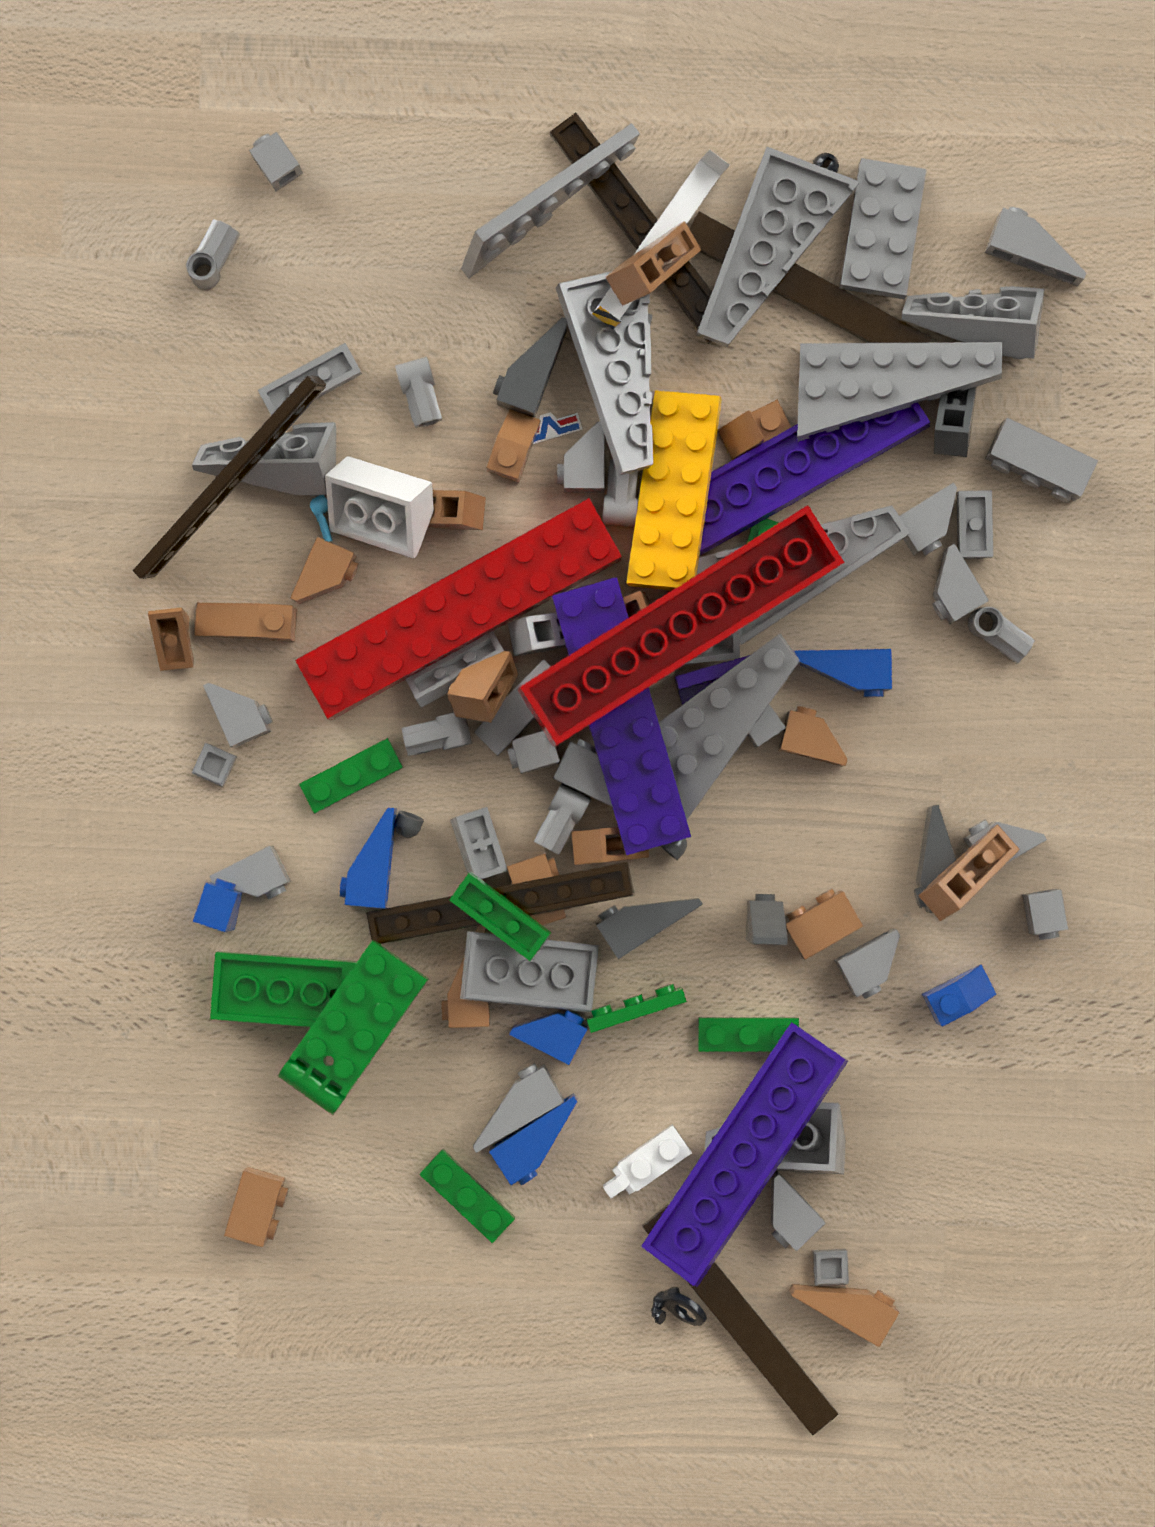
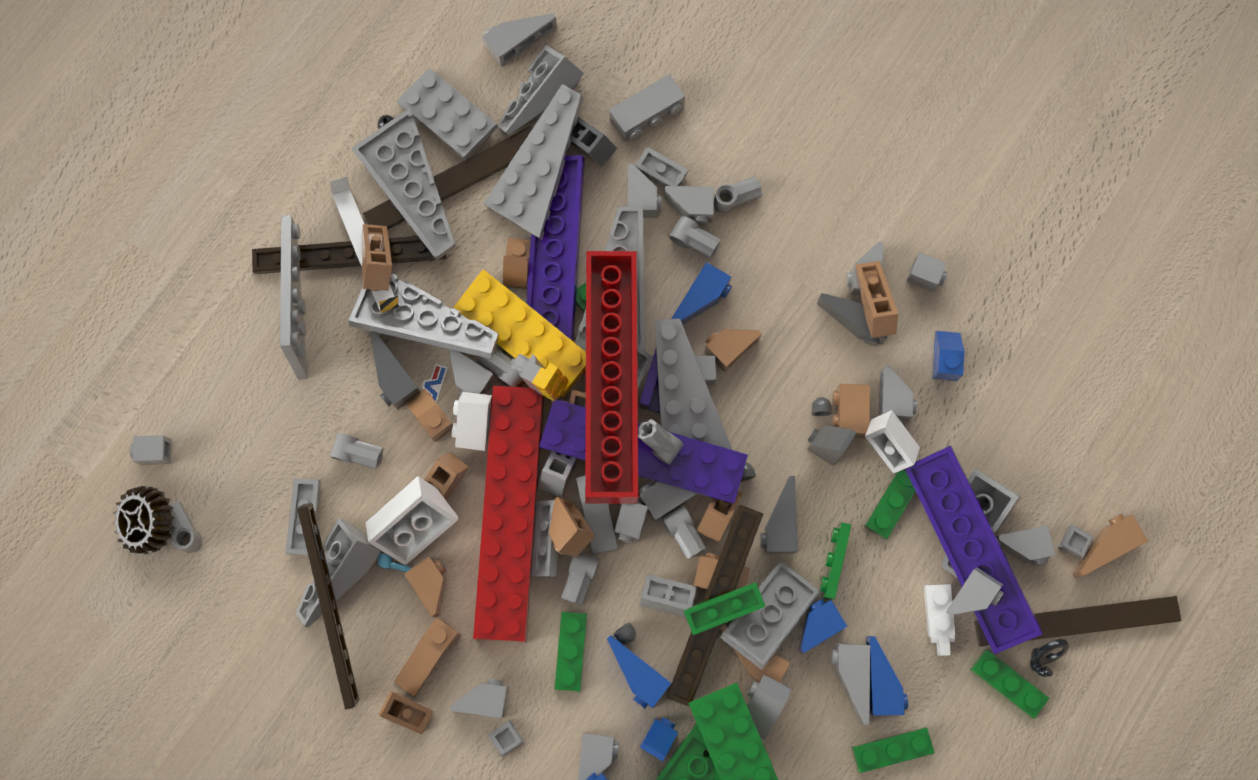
camera: 60 degrees left, 10 degrees down
(186, 202) = (143, 520): none -> dark brown gear
(316, 932) = (659, 738): none -> blue slope
(427, 1026) = (766, 703): none -> light grey slope
(535, 500) = (473, 421): none -> white brick
(621, 1282) = (1009, 684): none -> green plate
(629, 545) = (546, 381): none -> hips
(639, 732) = (663, 443): none -> light grey piece
(694, 1187) = (976, 593): none -> light grey slope
(805, 886) = (821, 407): none -> dark grey hinge
(811, 991) = (892, 441): none -> white brick
(914, 607) = (688, 234): none -> light grey piece

